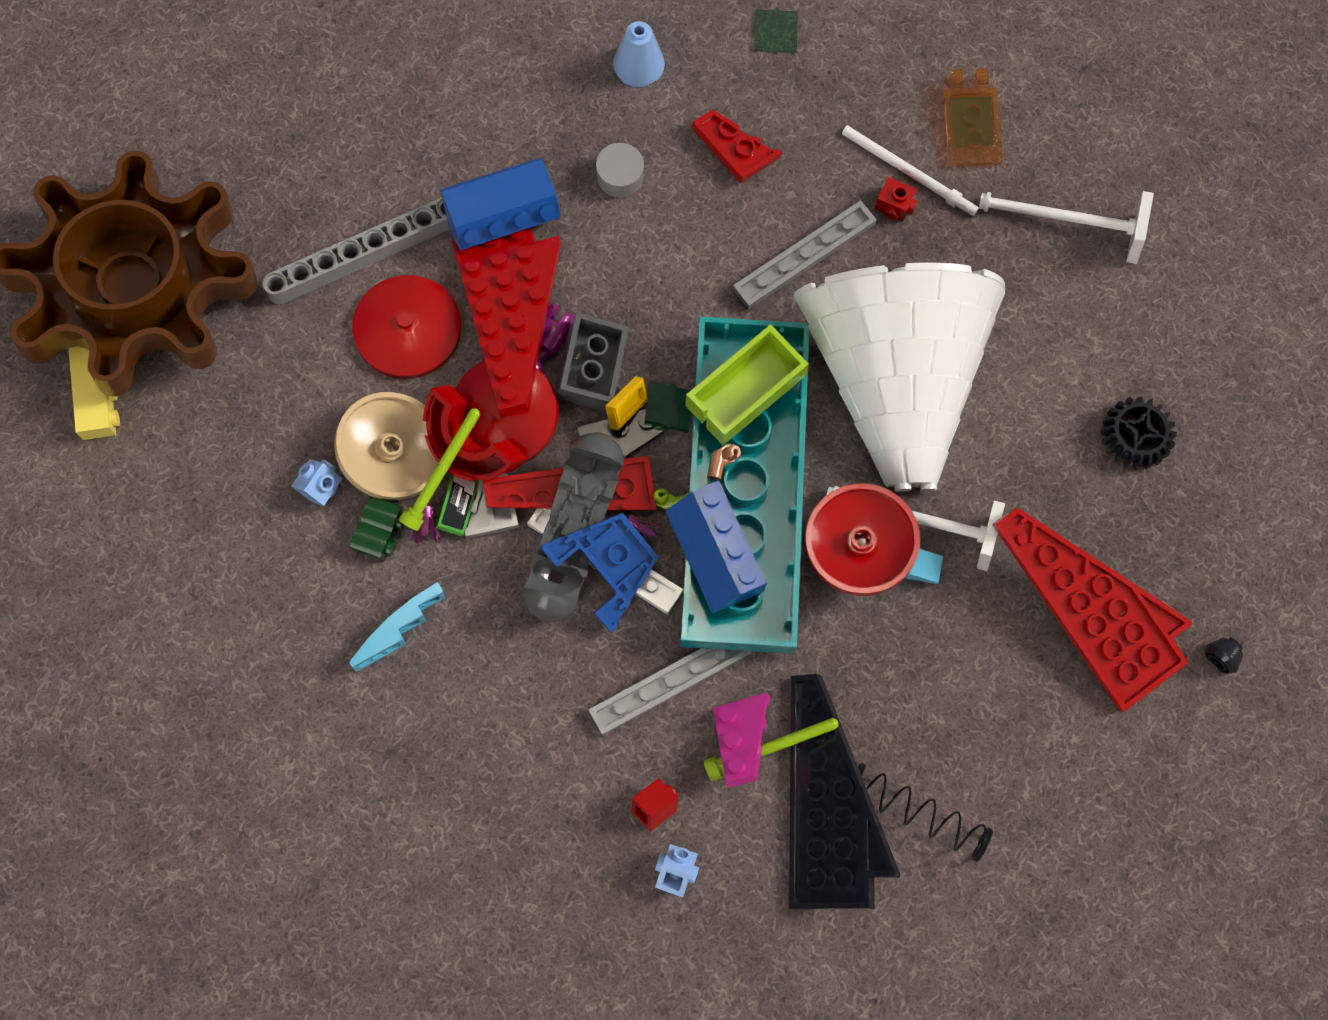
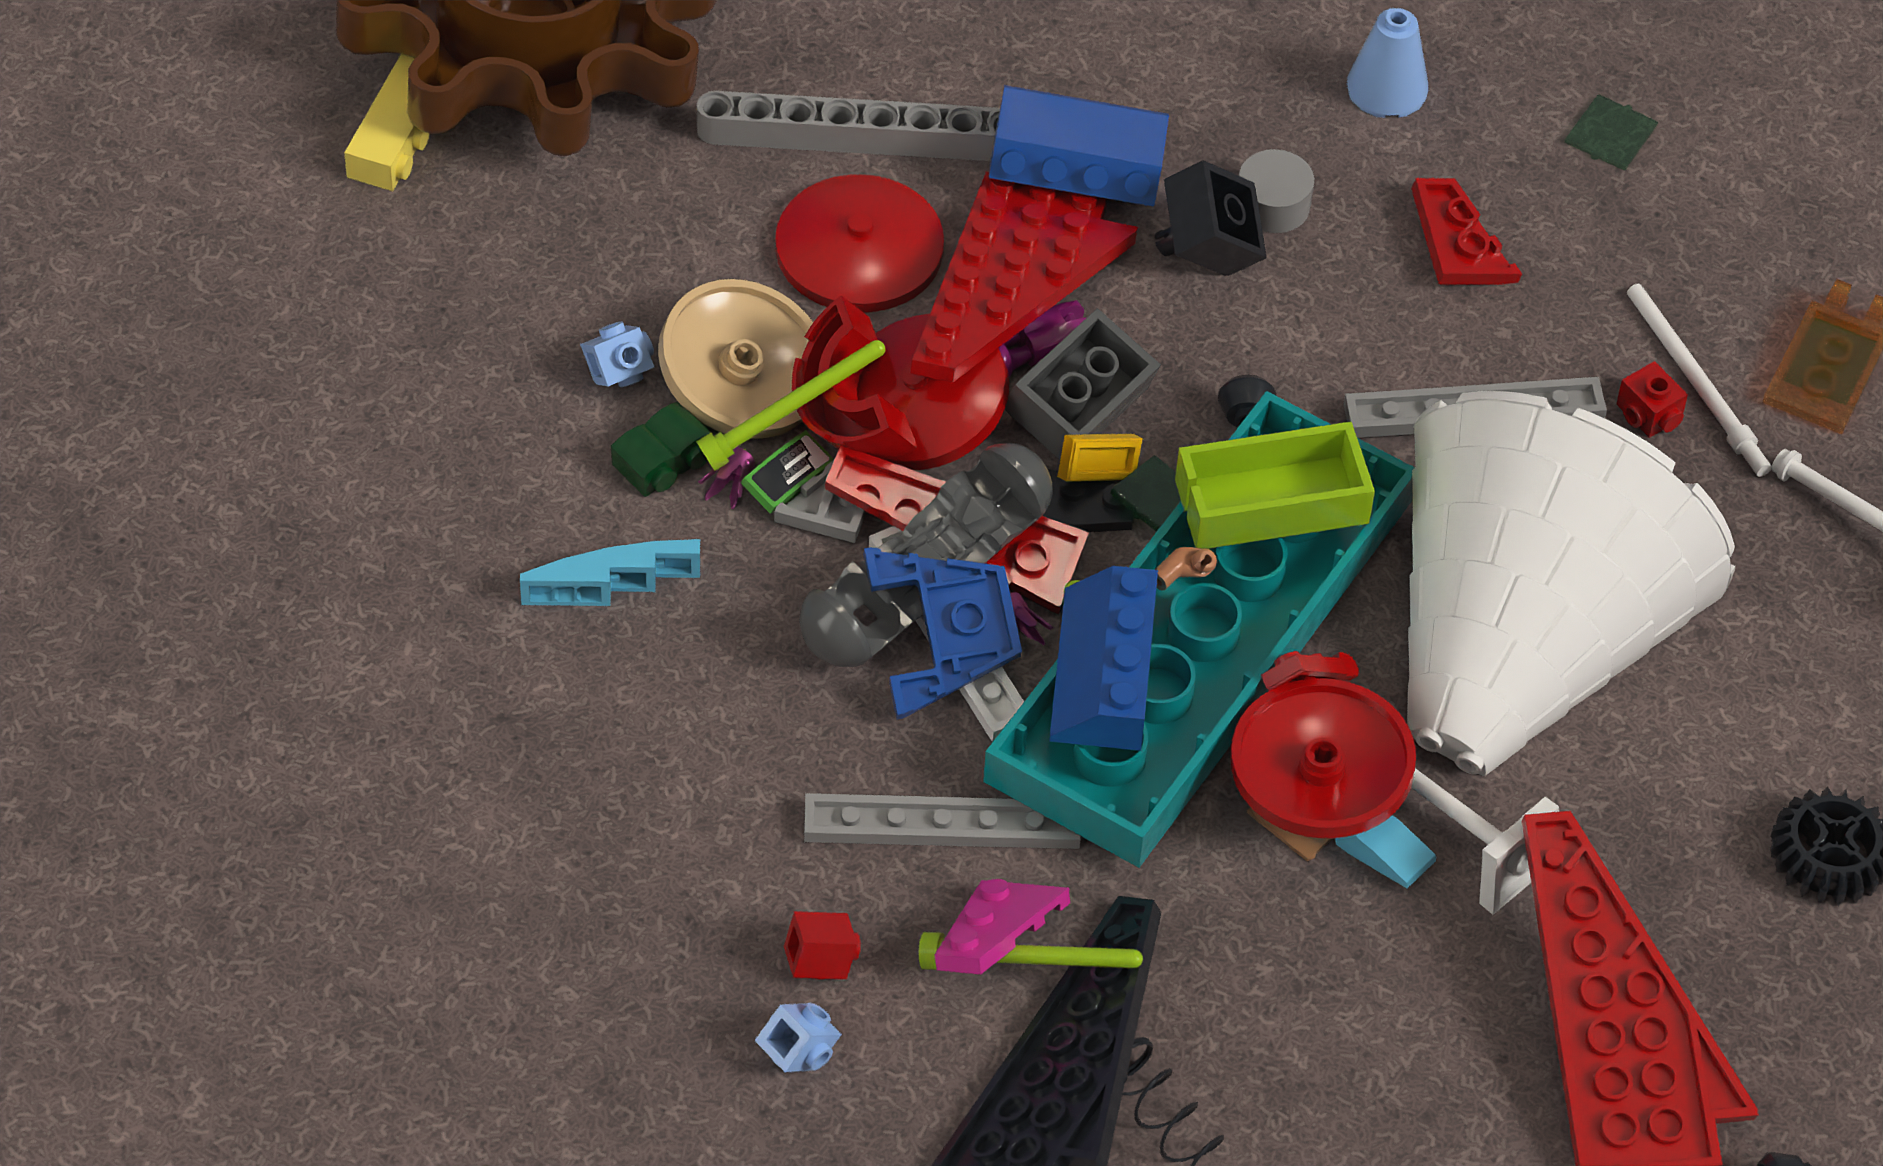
camera: 30 degrees right, 20 degrees down
(602, 213) = (1212, 219): none -> black brick
(683, 319) = (1240, 396): none -> black cone
(822, 483) = (1296, 667): none -> red hinge

